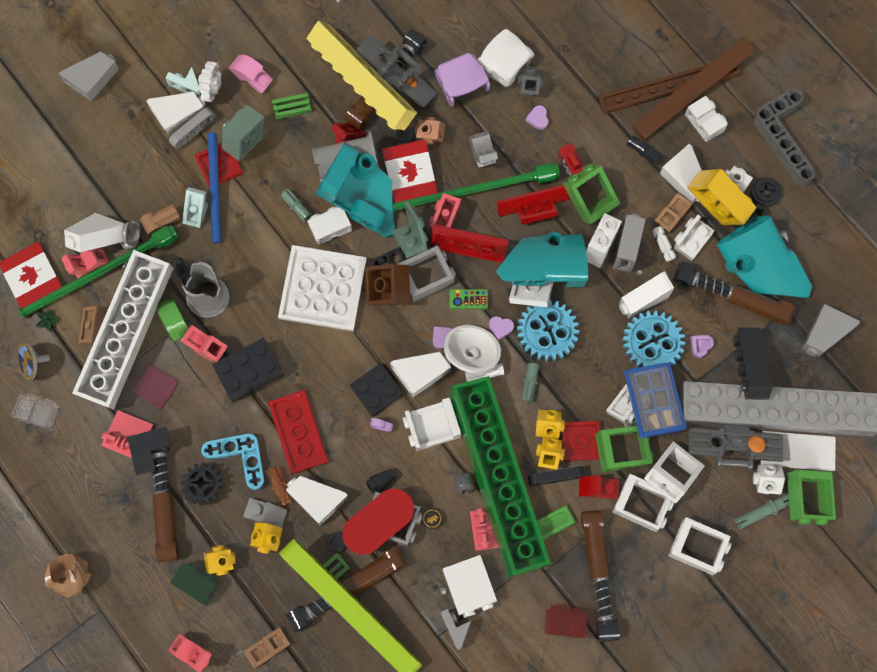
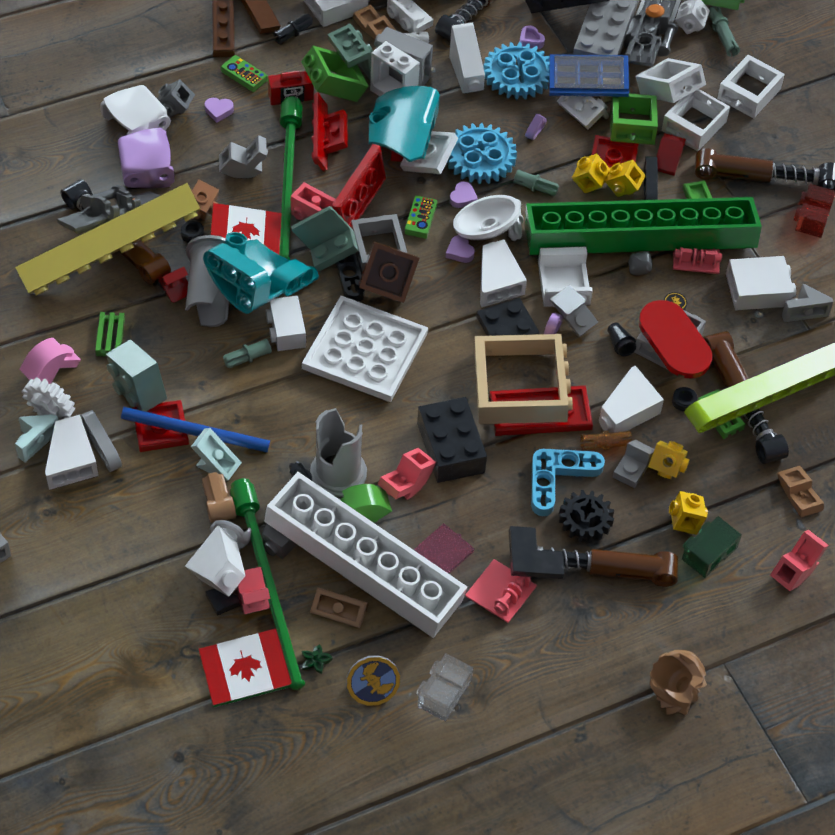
camera: 80 degrees left, 20 degrees down
(306, 380) = (522, 411): none -> tan window
(394, 437) = (574, 311): none -> light grey slope
(583, 126) = (244, 73): none -> bright green tile
(593, 369) = (535, 127): none -> lavender tile
(620, 199) = (352, 48): none -> sand green bracket

